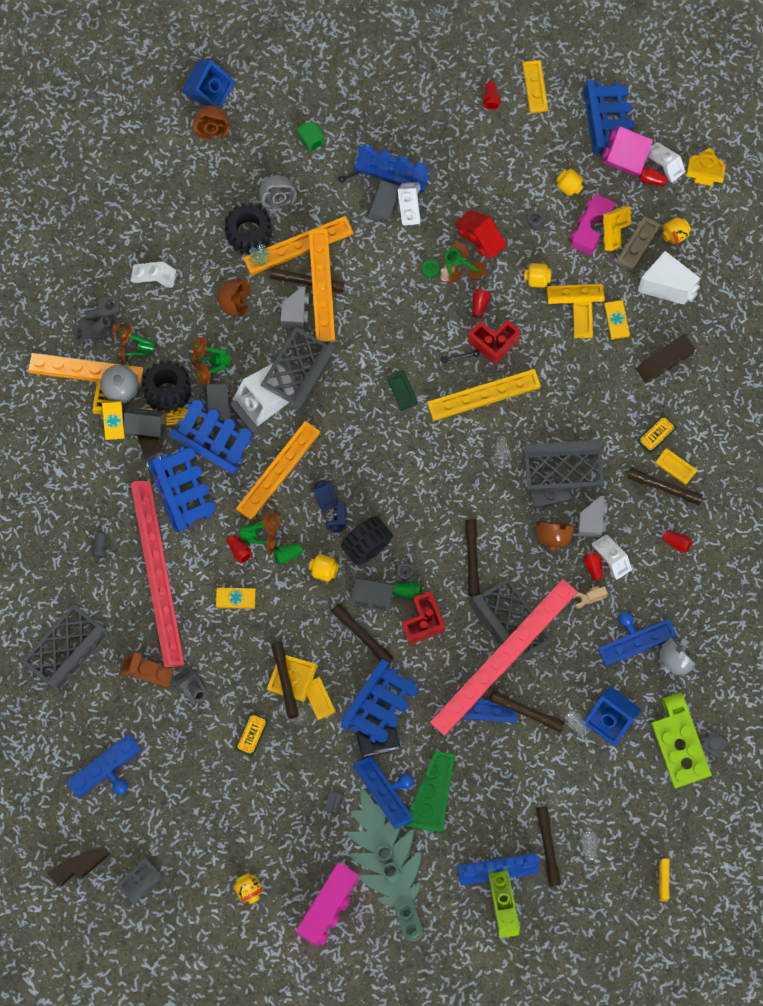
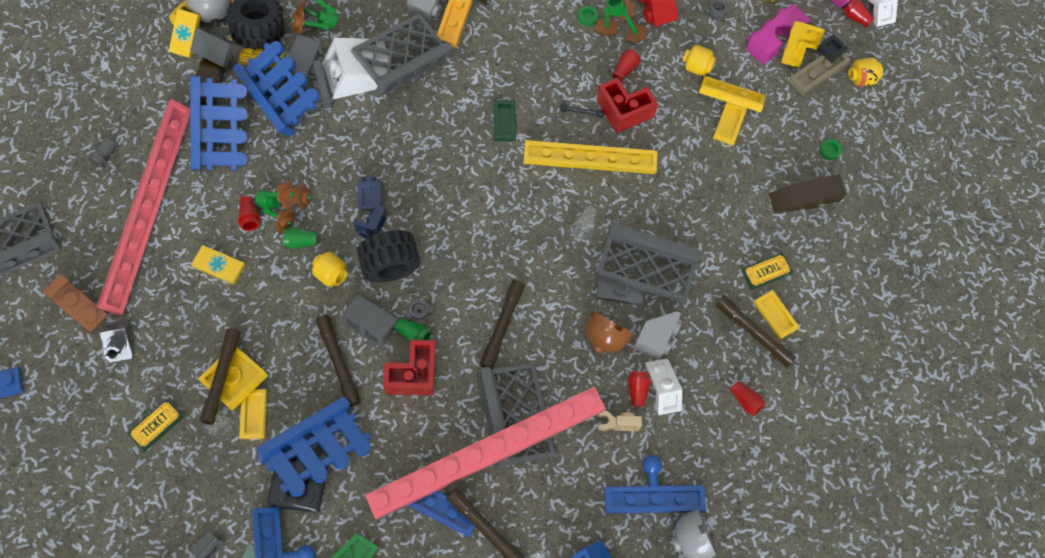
camera: 15 degrees right, 5 degrees down
(278, 471) = (332, 149): light orange plate -> none
(616, 319) = (767, 136): yellow tile -> none
(642, 221) = (832, 48): none -> black tile
(670, 280) = (842, 115): white slope -> none
(671, 310) = (830, 149): none -> green tile
(706, 168) = (919, 25): yellow plate -> none

